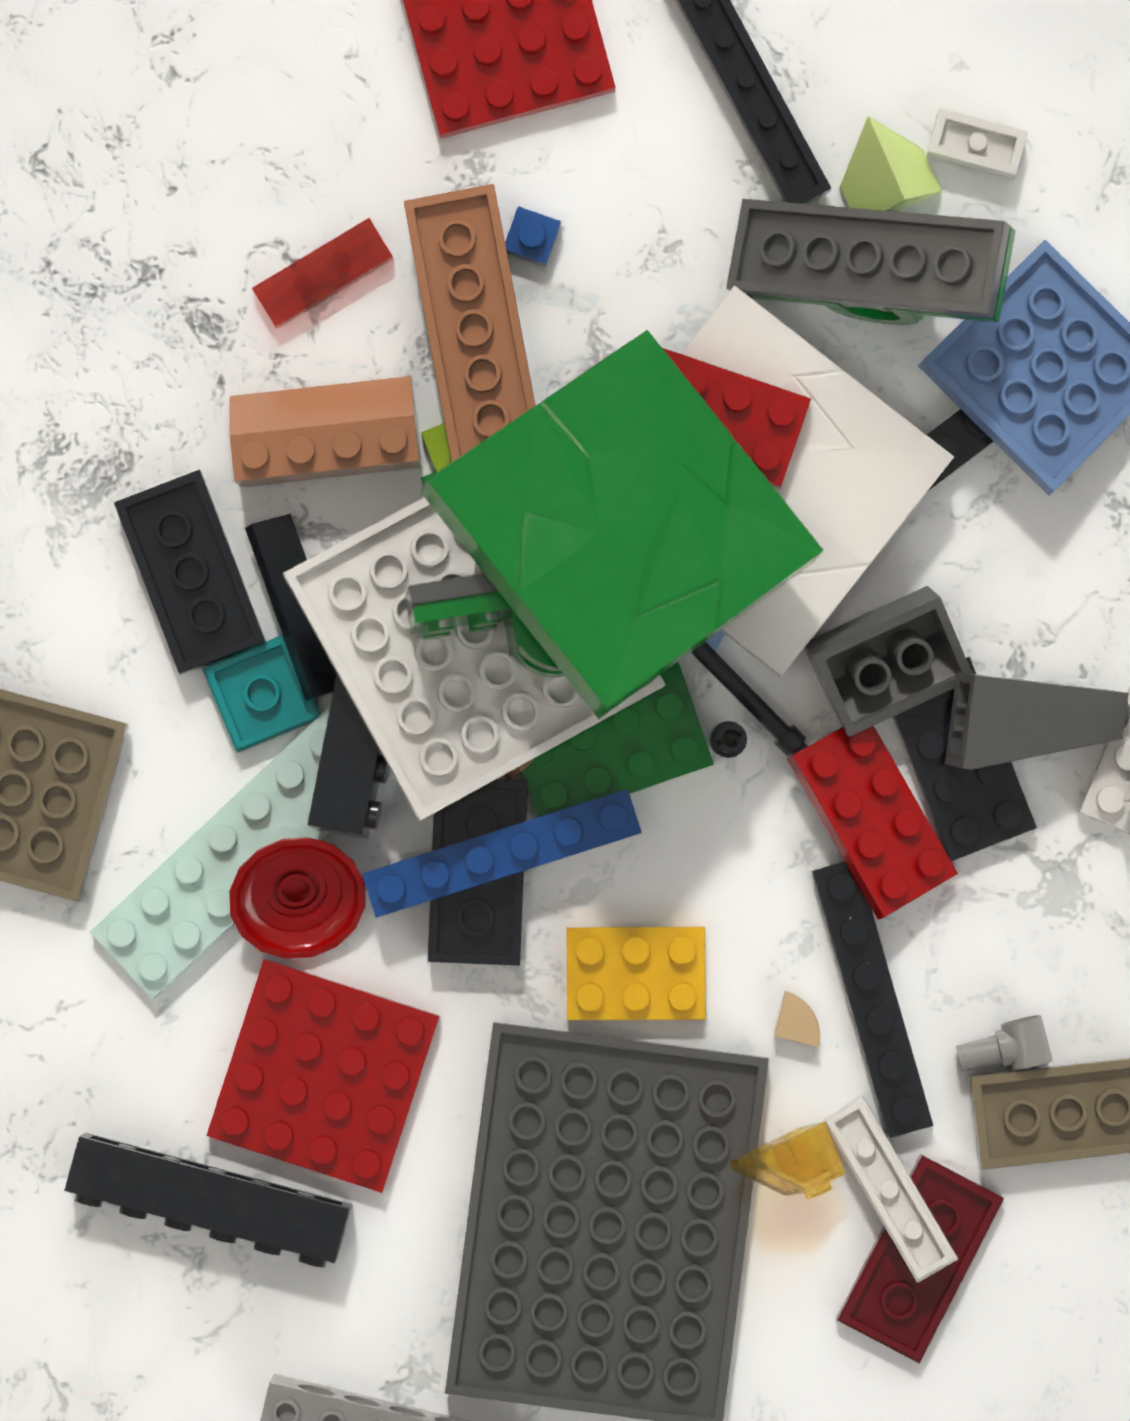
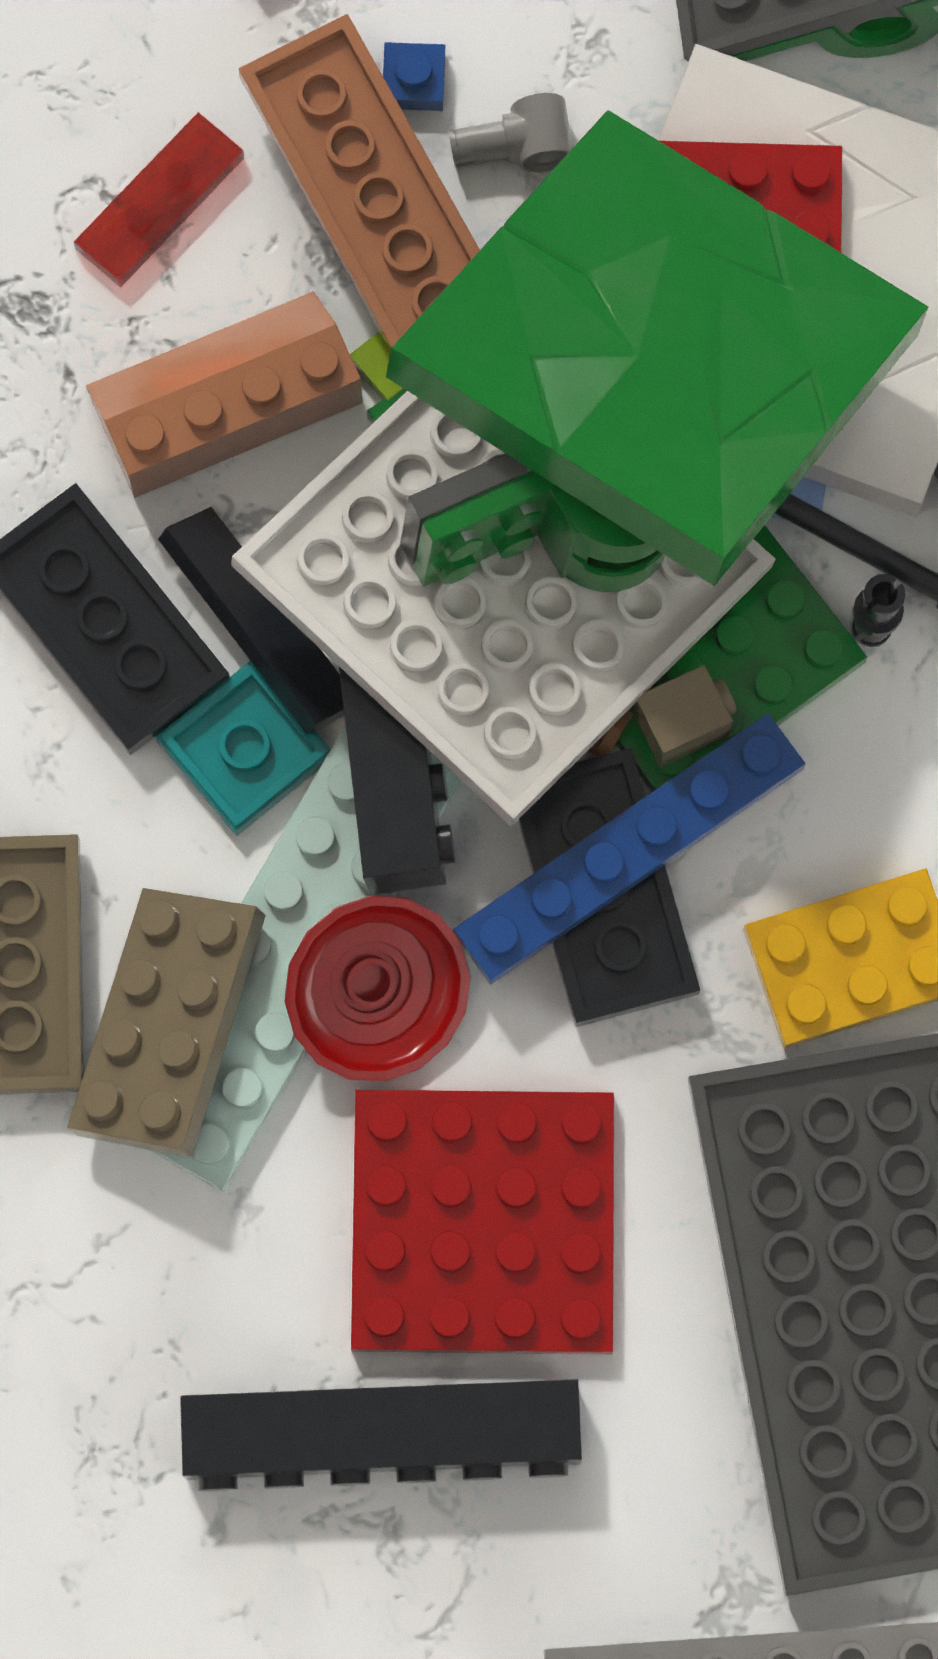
camera: 20 degrees left, 10 degrees down
(147, 875) = (166, 1022): none -> dark tan plate
(569, 773) = (685, 715): none -> dark tan brick
(601, 309) = (532, 134): none -> light grey pin

